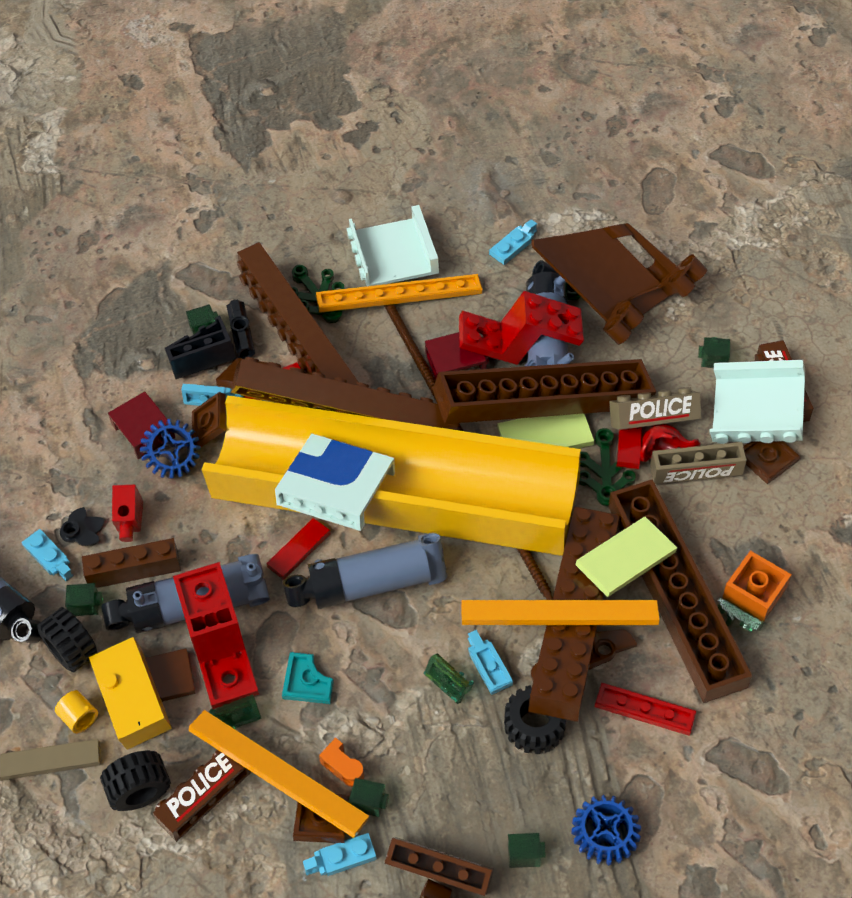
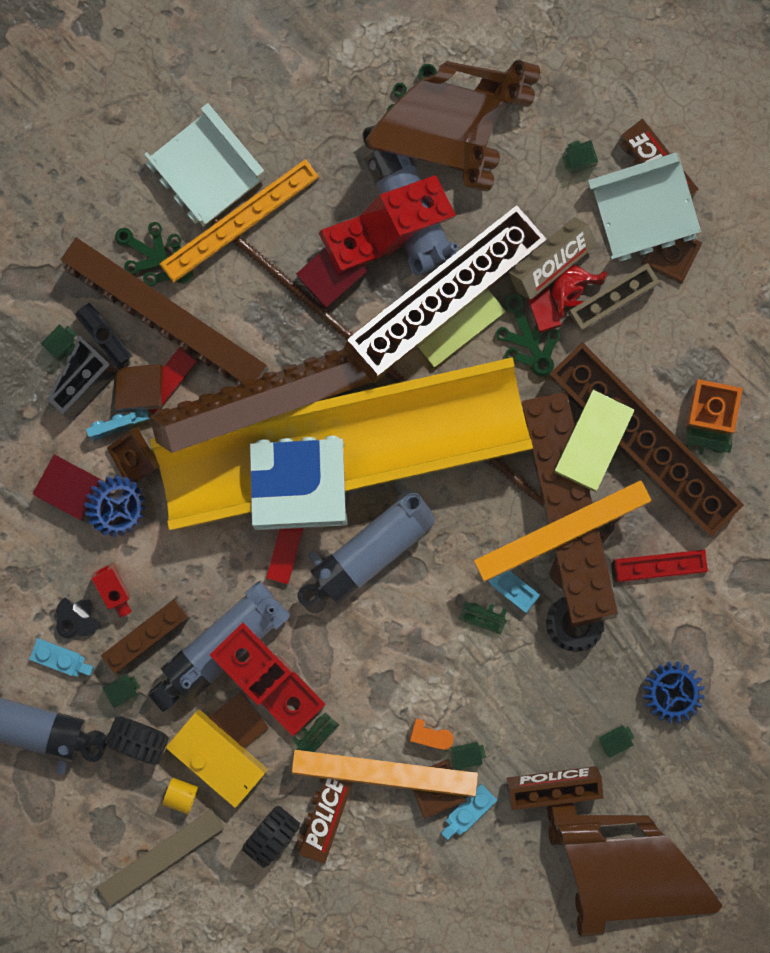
camera: 30 degrees left, 30 degrees up
(305, 682) = (359, 674): teal tile -> none
(513, 242) = (323, 101): medium azure hinge -> none

